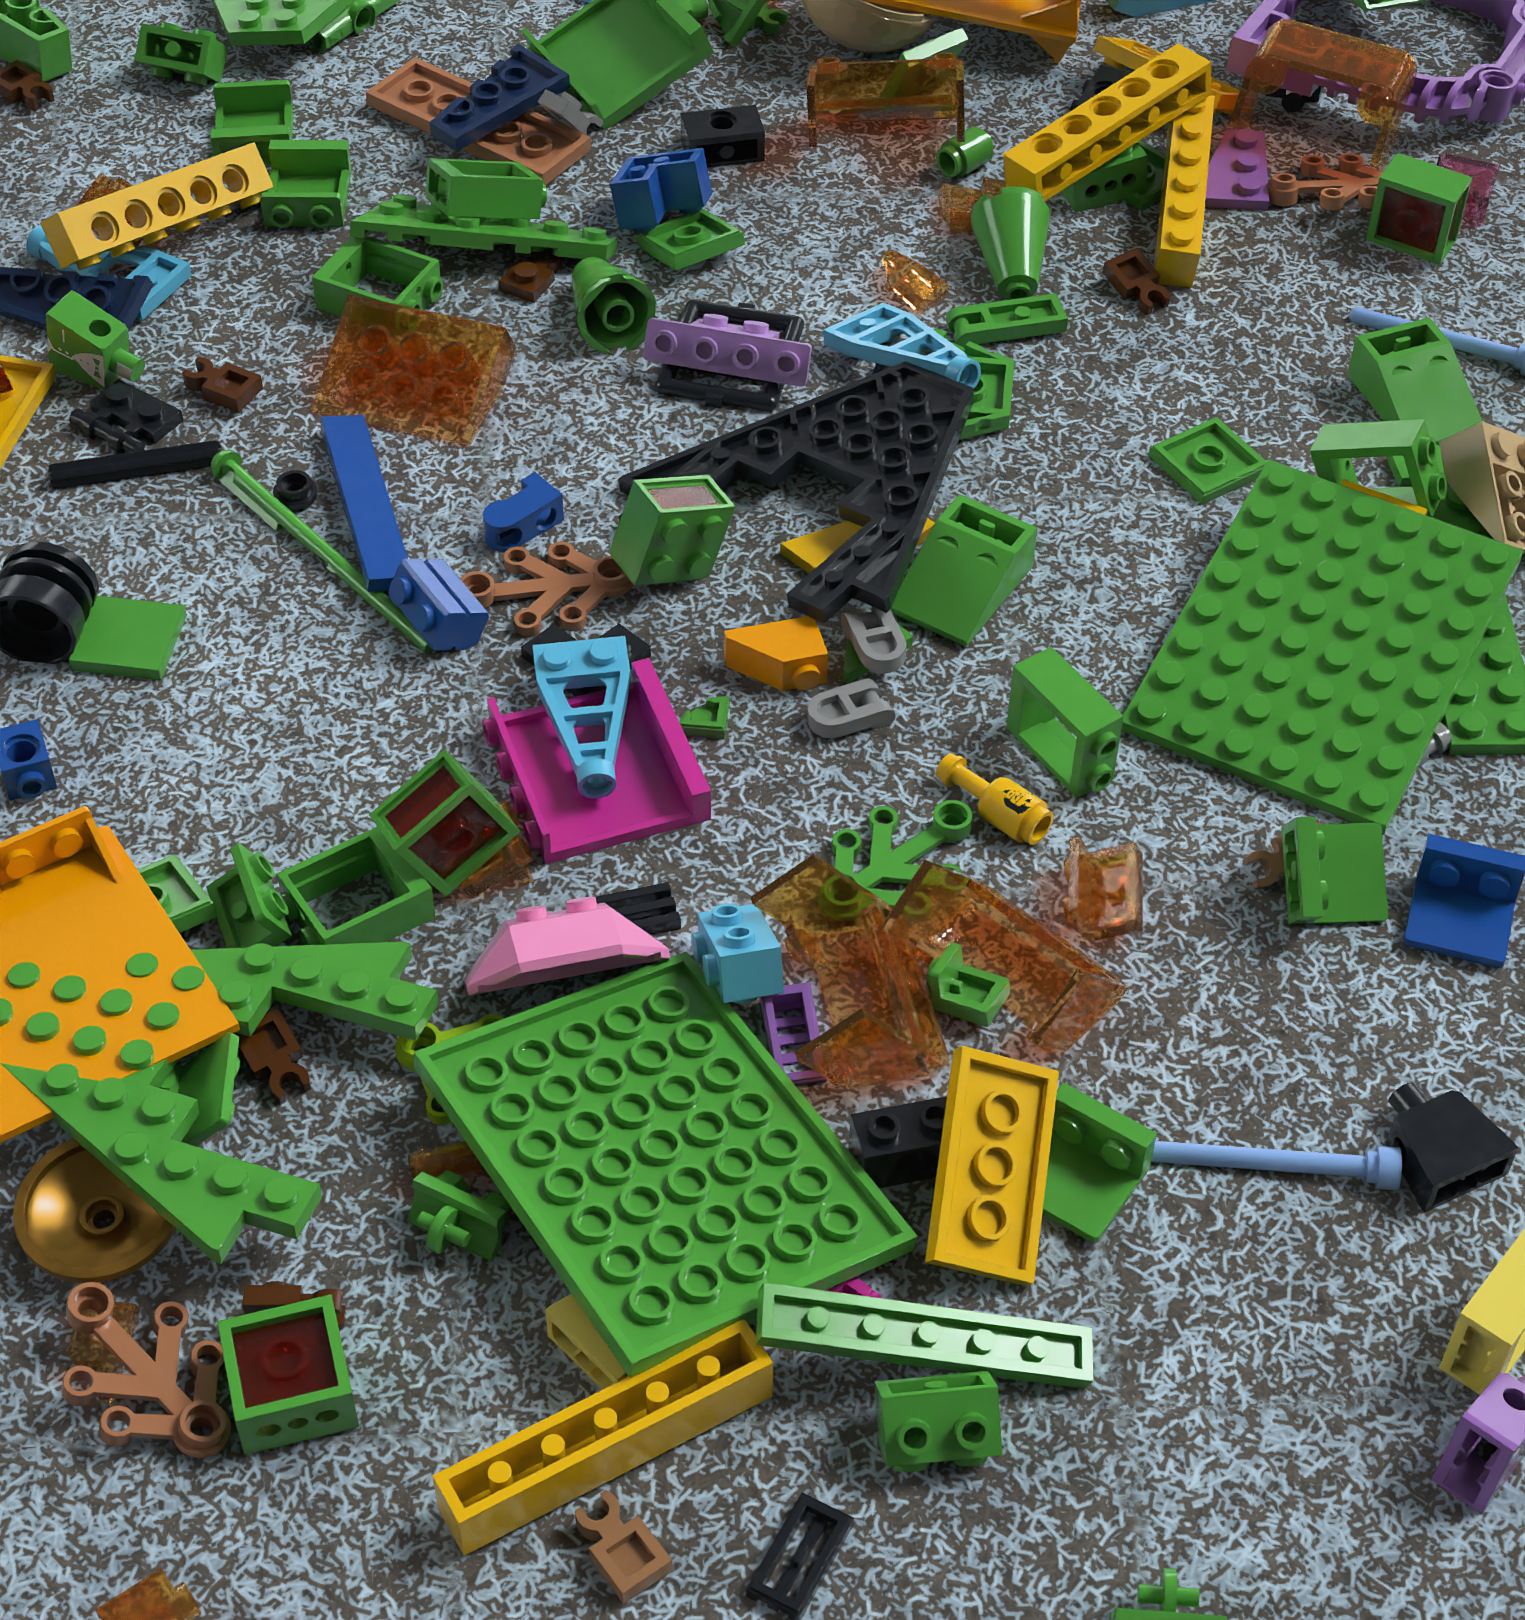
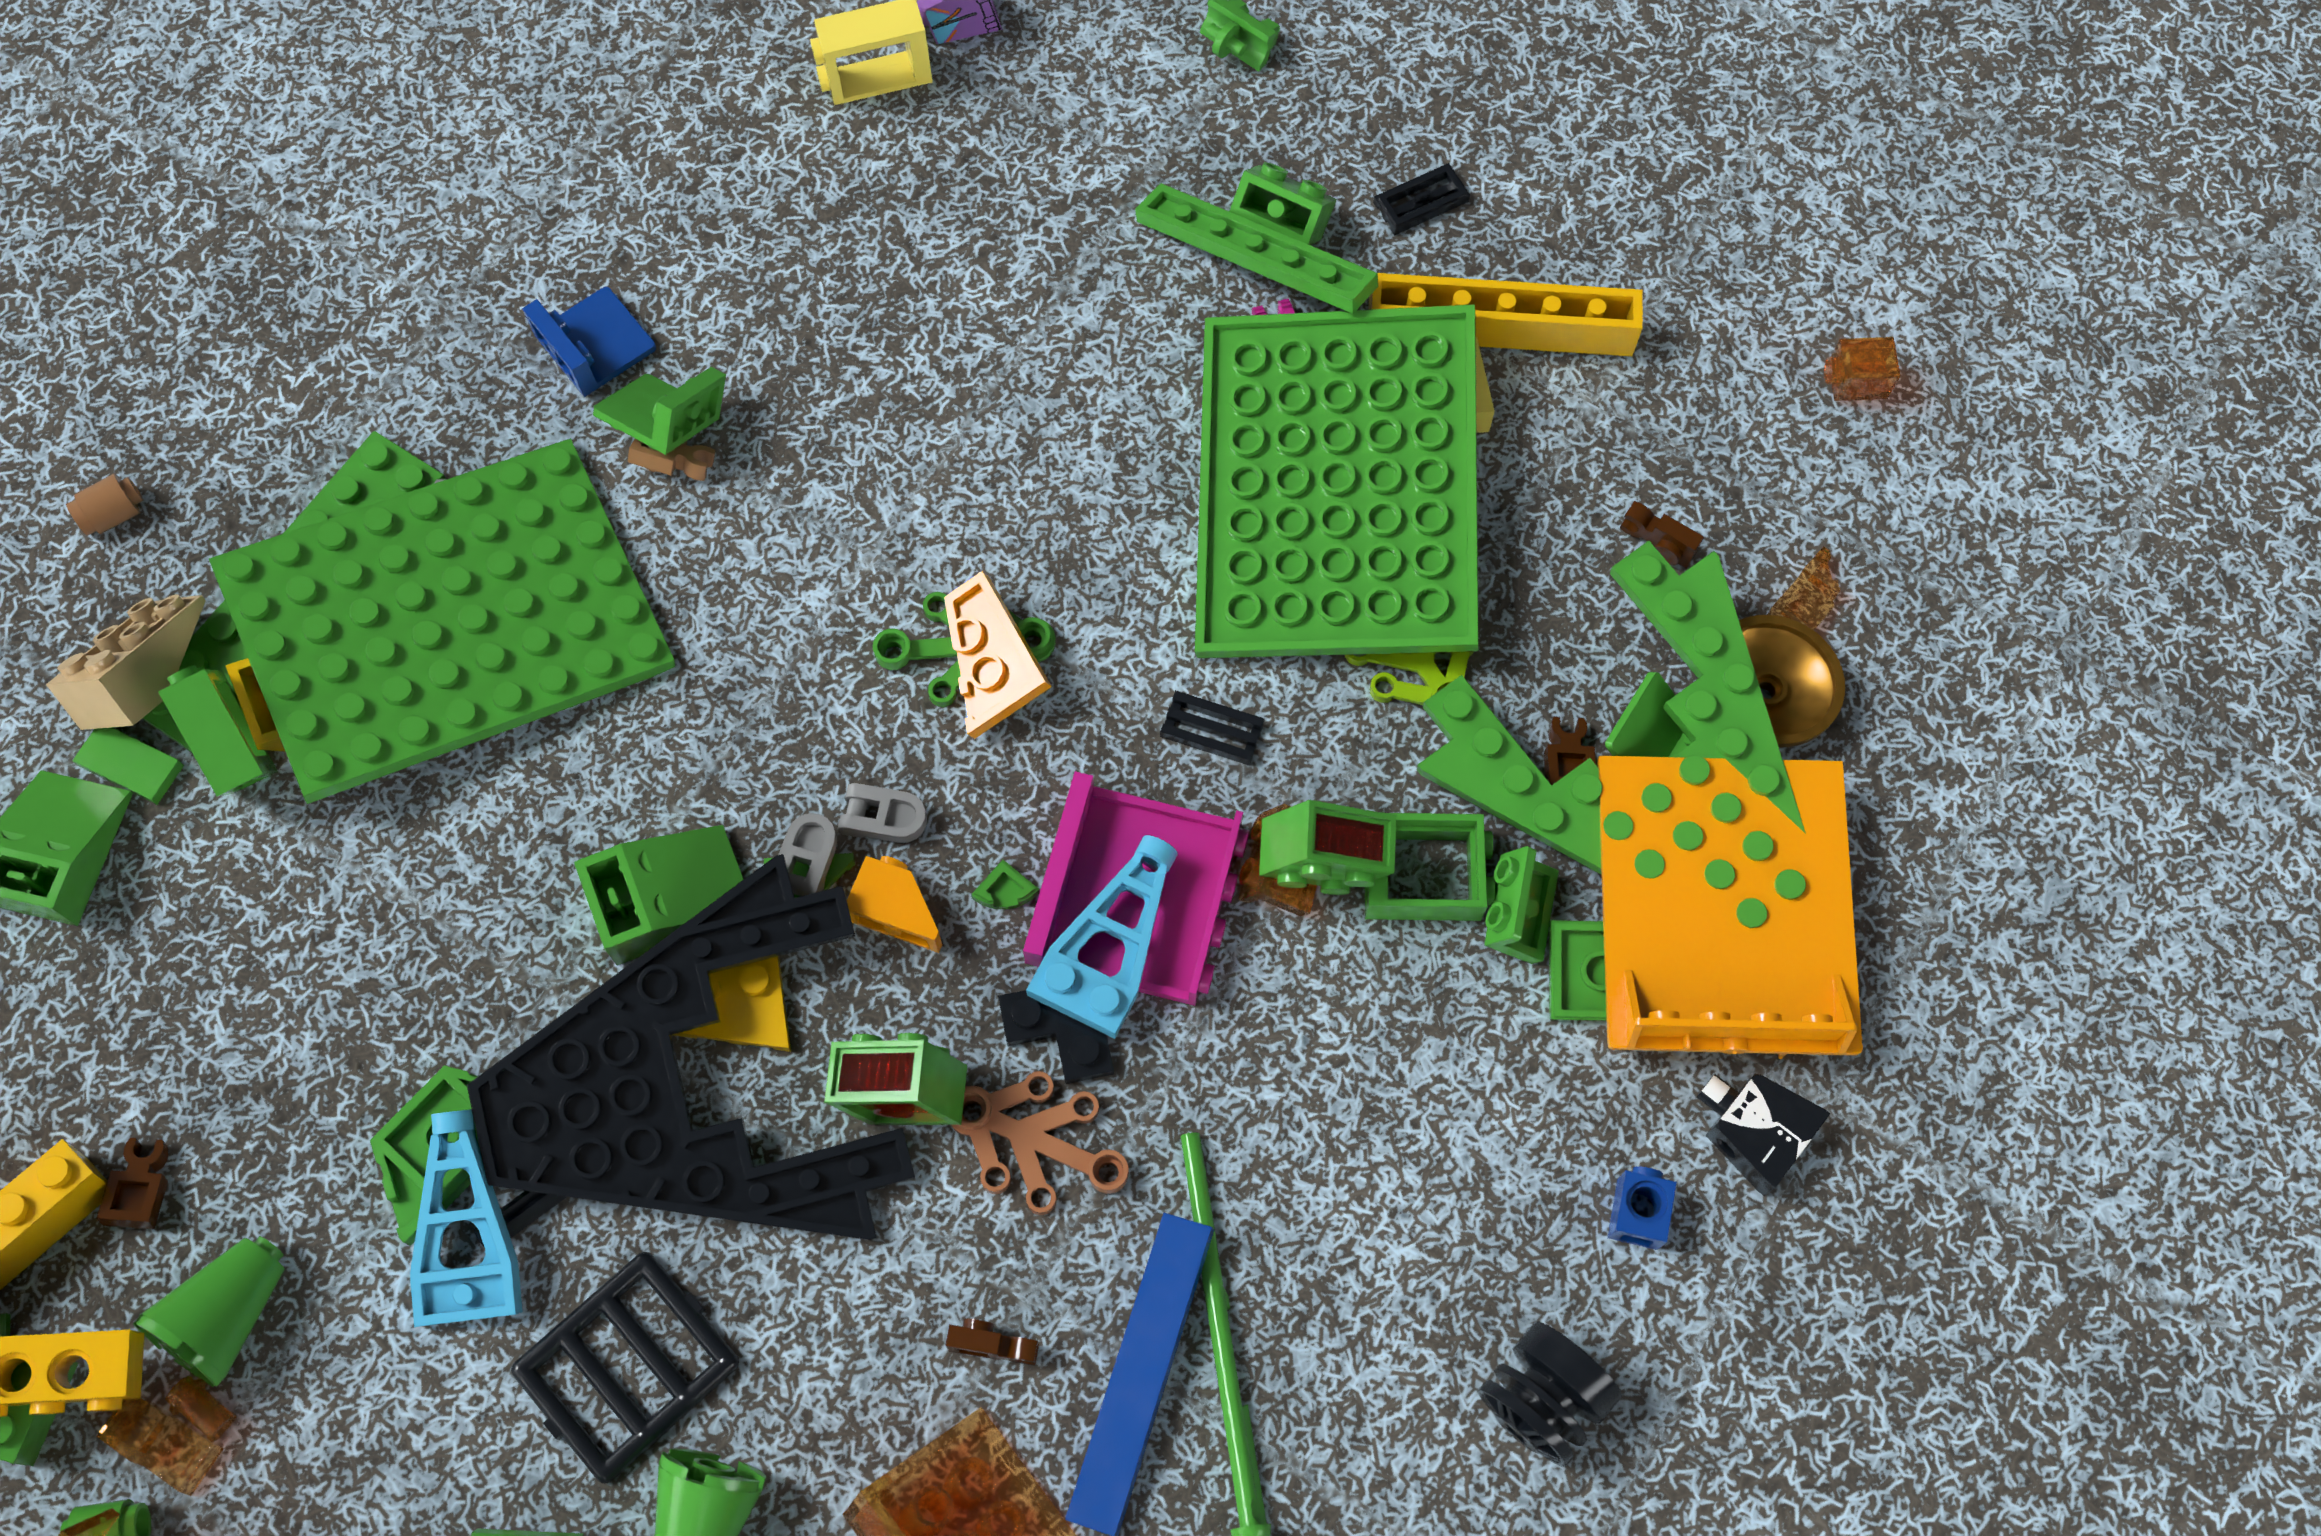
camera: 145 degrees left, 20 degrees up
(128, 638) = (1465, 1331): bright green tile -> none
(149, 1378) = (1788, 539): nougat plant -> none
(287, 1374) = (1696, 474): piece -> none
(295, 489) = (1196, 1426): black plate -> none
(438, 604) = (1163, 1160): blue brick -> none
(453, 1157) = (1498, 592): clear orange pin -> none
(456, 1216) = (1512, 557): bright green hips -> none
(492, 461) = (979, 1340): none -> reddish brown plate
(523, 514) = (1000, 1242): blue leg -> none
(560, 946) = (1298, 691): bright pink wedge -> none
(624, 1553) = (1531, 253): medium nougat plate -> none
(728, 349) = (631, 1344): lavender bracket -> none
(738, 953) = (1157, 603): medium azure brick -> none
(794, 997) = (1152, 569): medium lavender slope -> none
(851, 841) = (992, 655): none -> wing
(868, 978) = (1086, 522): clear orange windscreen -> none
(898, 1141) = (1152, 396): black brick -> none
(912, 281) = (354, 1348): clear orange slope -> none
(965, 989) = (1009, 492): bright green bracket -> none
(992, 1166) = (1118, 323): yellow plate -> none
(1001, 801) = (840, 638): yellow piece -> none
(1007, 319) = (314, 1216): bright green plate -> none
(1049, 978) = (942, 481): clear orange windscreen -> none
(1050, 688) = (735, 655): bright green window -> none
(1092, 1163) = (1048, 316): bright green bracket -> none
(1104, 890) = (831, 511): clear orange bracket -> none
(1208, 460) = (312, 903): bright green tile -> none
(1376, 1167) = (845, 204): light blue piece -> none
(1446, 1145) = (793, 186): black torso -> none

